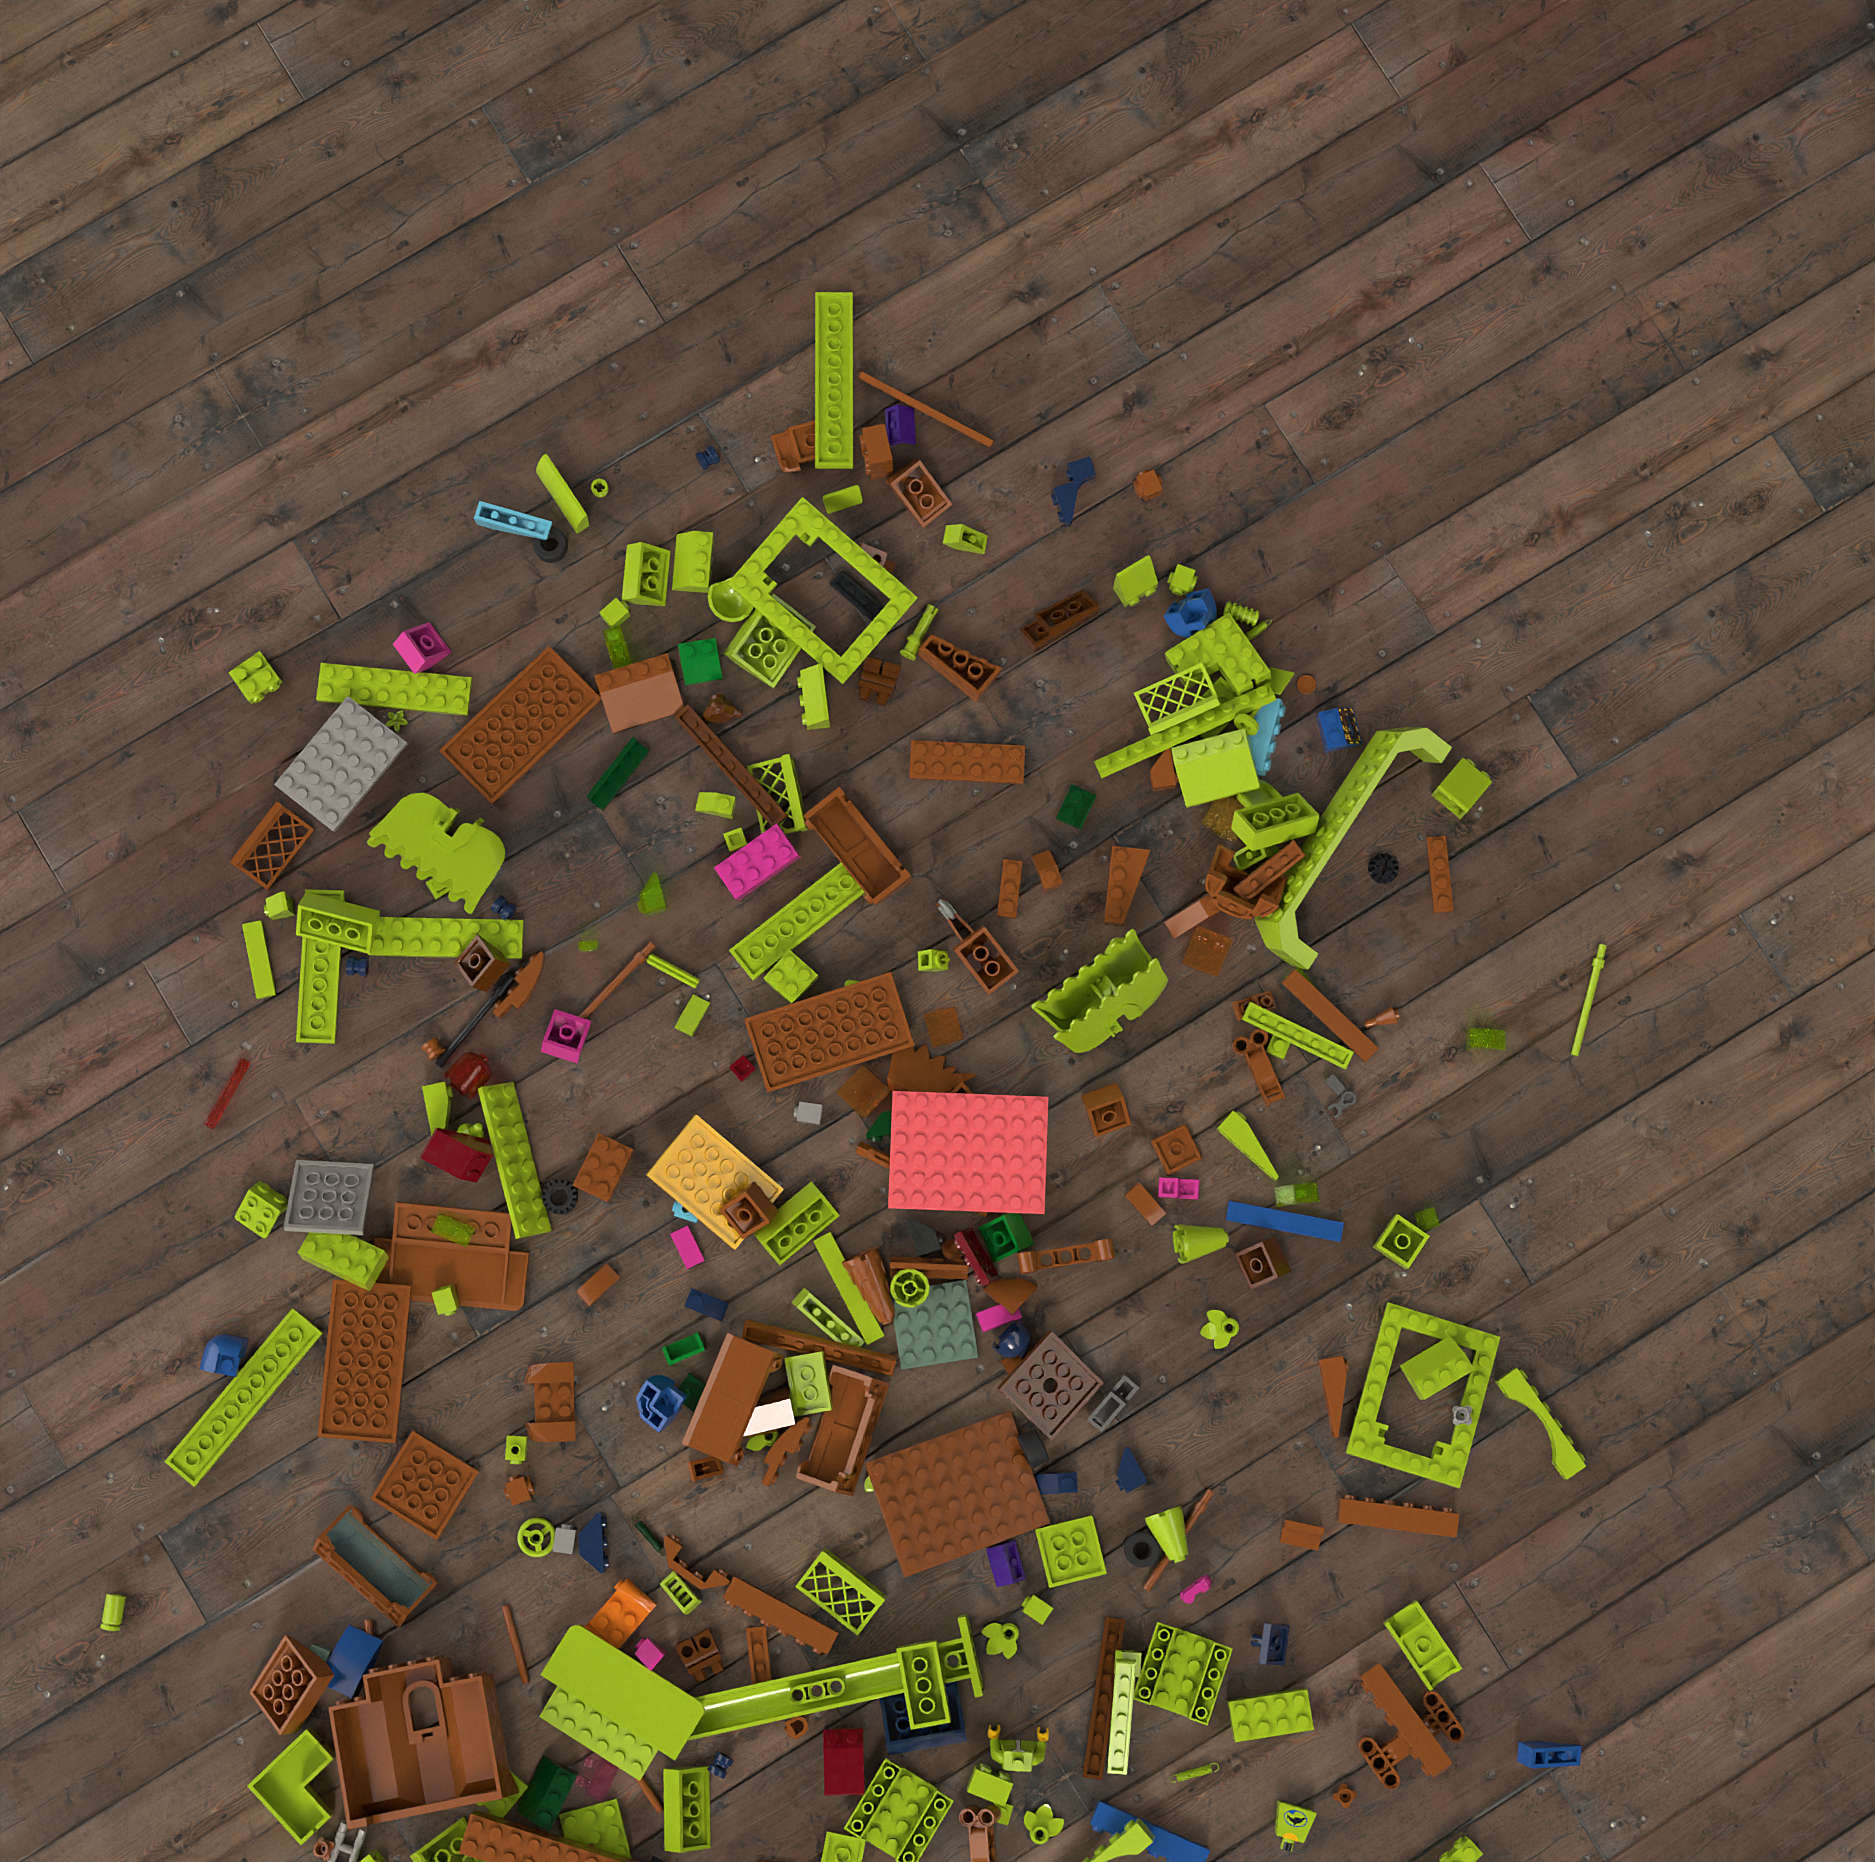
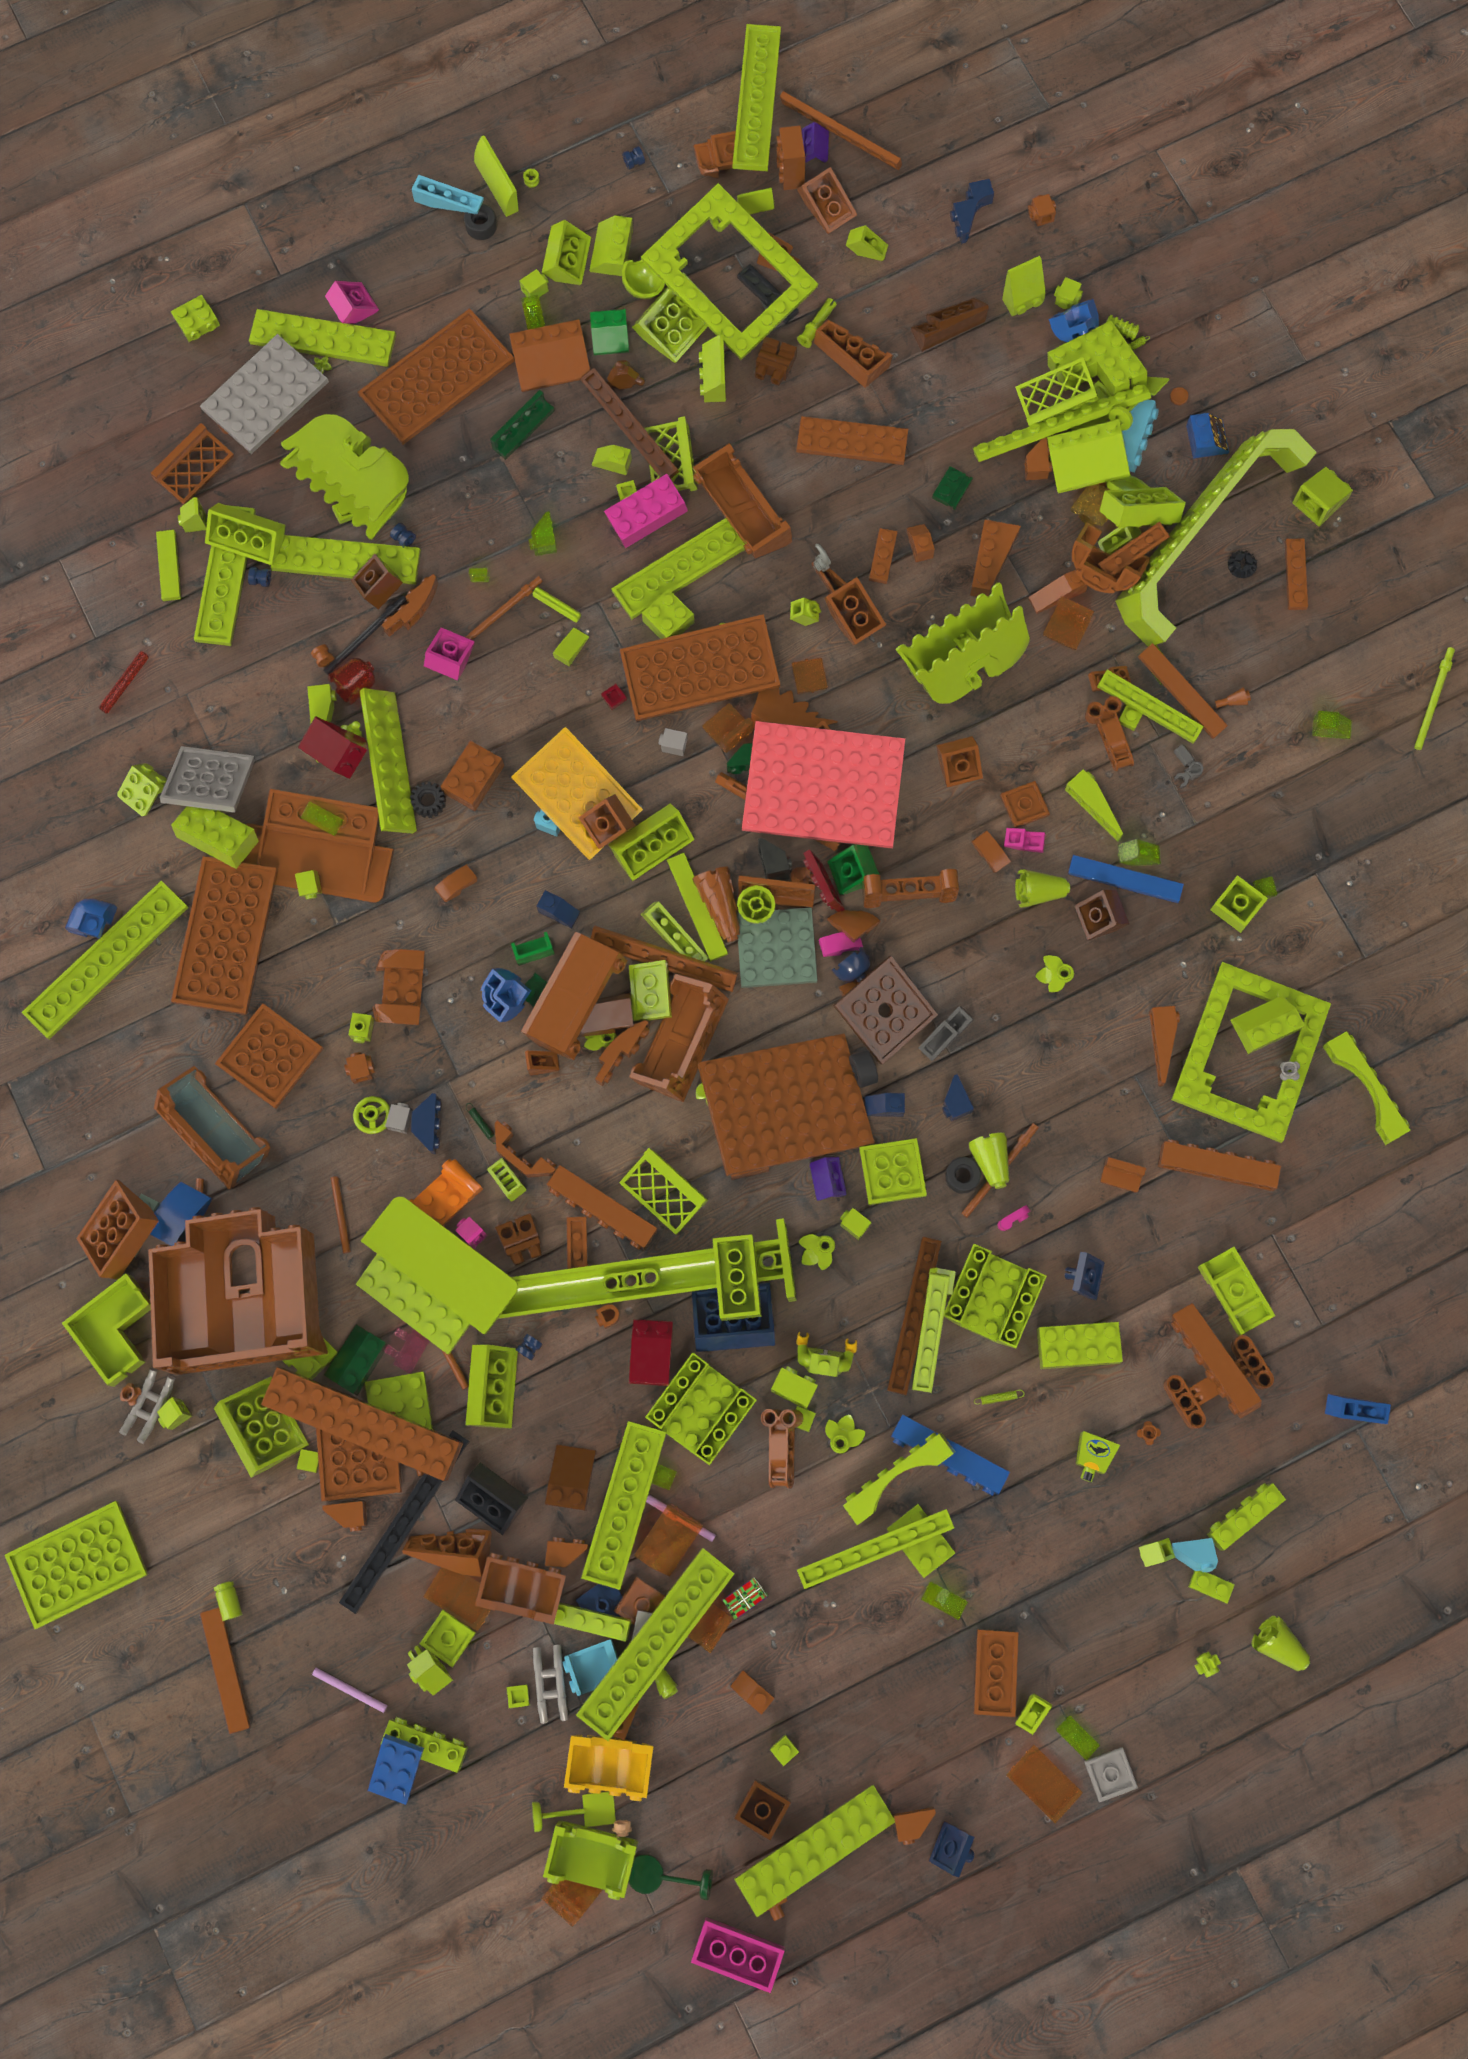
camera: 10 degrees right, 5 degrees down
(687, 1247) = (545, 856): dark pink tile -> none

